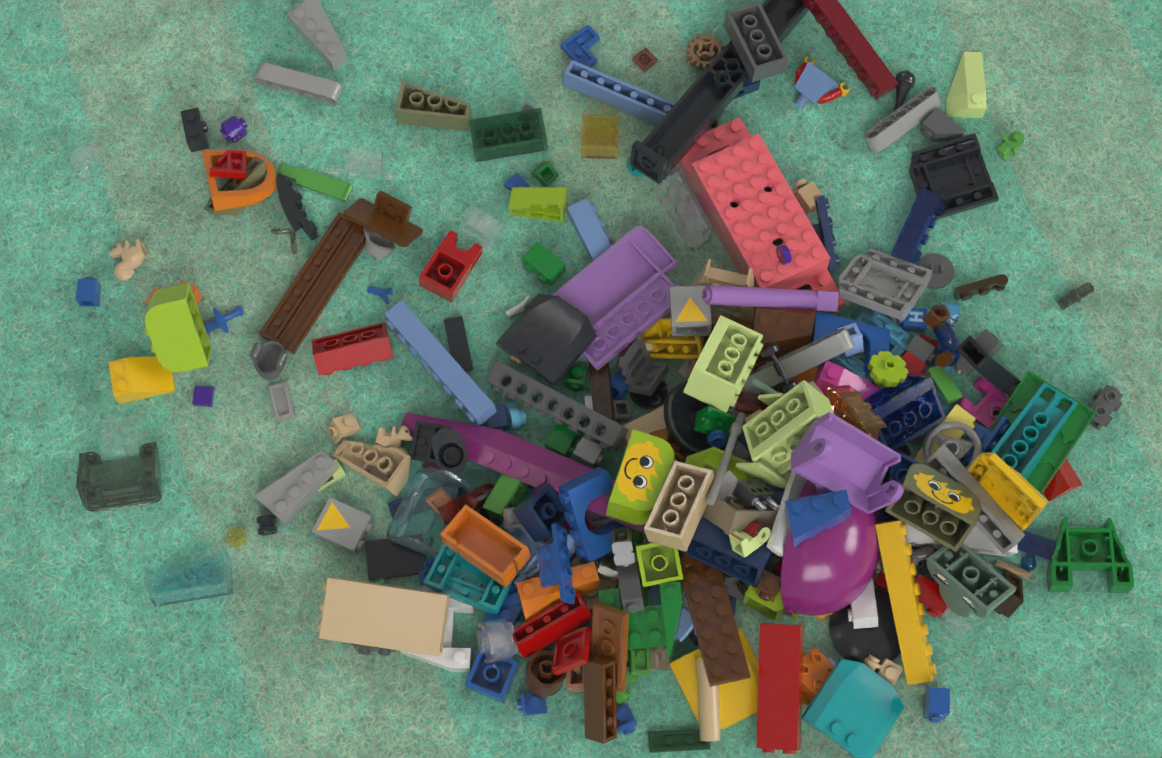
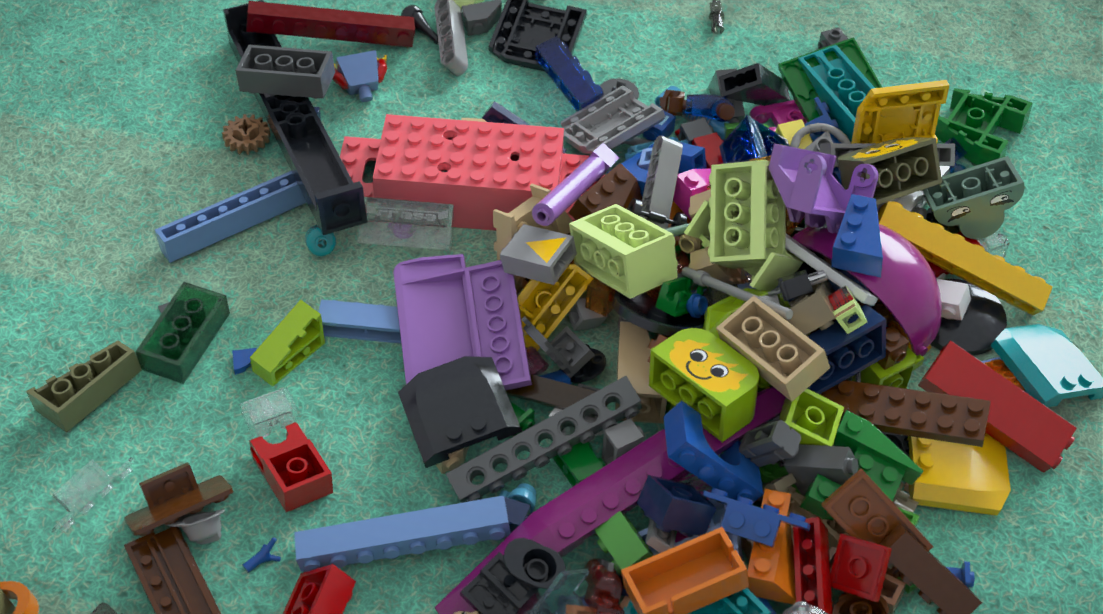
camera: 65 degrees left, 20 degrees down
(292, 207) = (65, 593): black slope -> none
(317, 182) = (63, 551): bright green piece -> none
(458, 342) = (370, 505): black tile -> none
(518, 308) = (392, 431): white bar -> none
(543, 264) = (361, 380): green brick -> none
(545, 173) = (253, 329): green slope -> none
(577, 46) = (137, 226): blue plate -> none
(600, 137) = (261, 255): clear yellow piece -> none
(645, 60) = (206, 185): clear red tile -> none
(676, 741) = (1002, 541): dark green tile -> none
(707, 706) = (977, 478): tan brick -> none
(783, 254) = (537, 151): dark purple tile -> none
(887, 369) = (712, 148): lime plant -> none
(887, 669) = (1012, 319): tan plate -> none
(936, 704) = (1076, 297): blue brick -> none
(980, 287) = (662, 67): dark brown plate -> none

